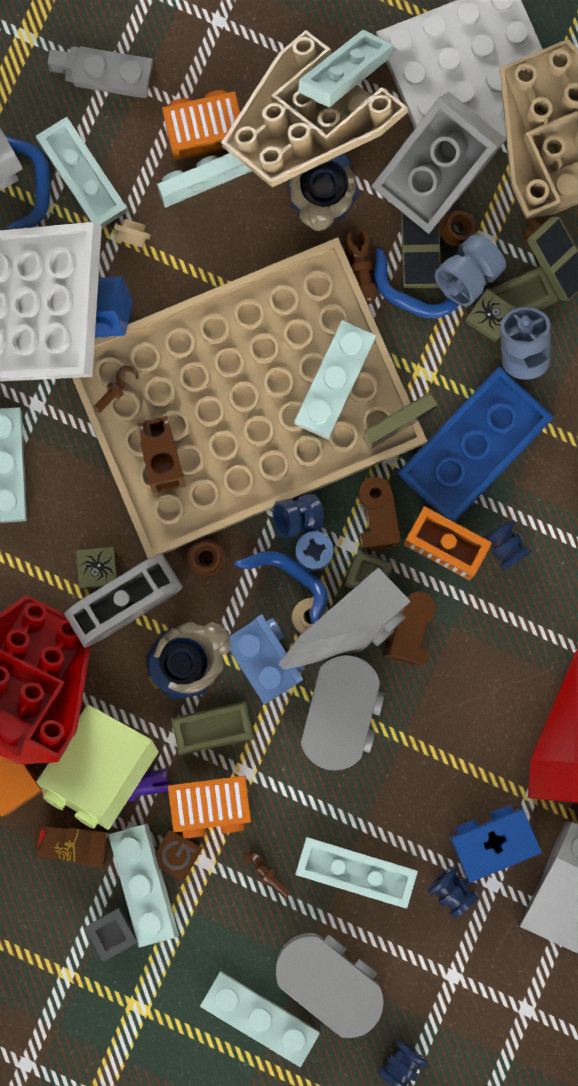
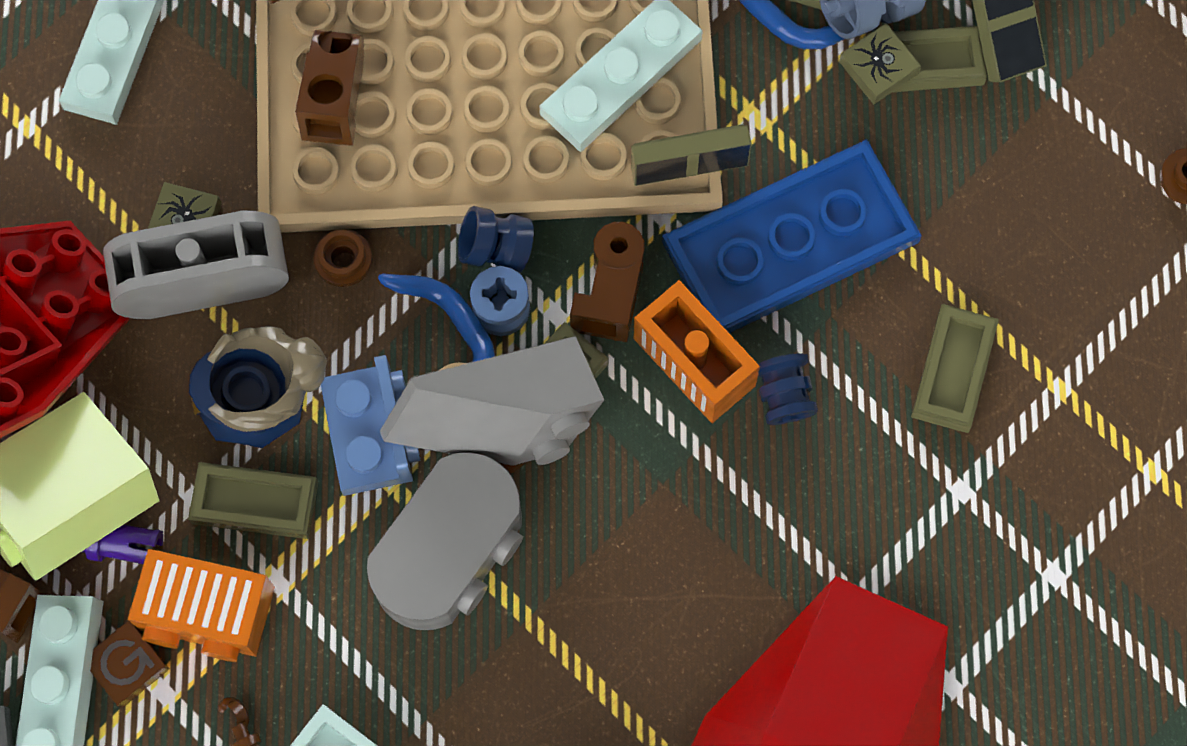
camera: 25 degrees right, 10 degrees down
(407, 637) = (607, 440): reddish brown leg -> none
(526, 343) = (915, 113): sand blue wheel -> none

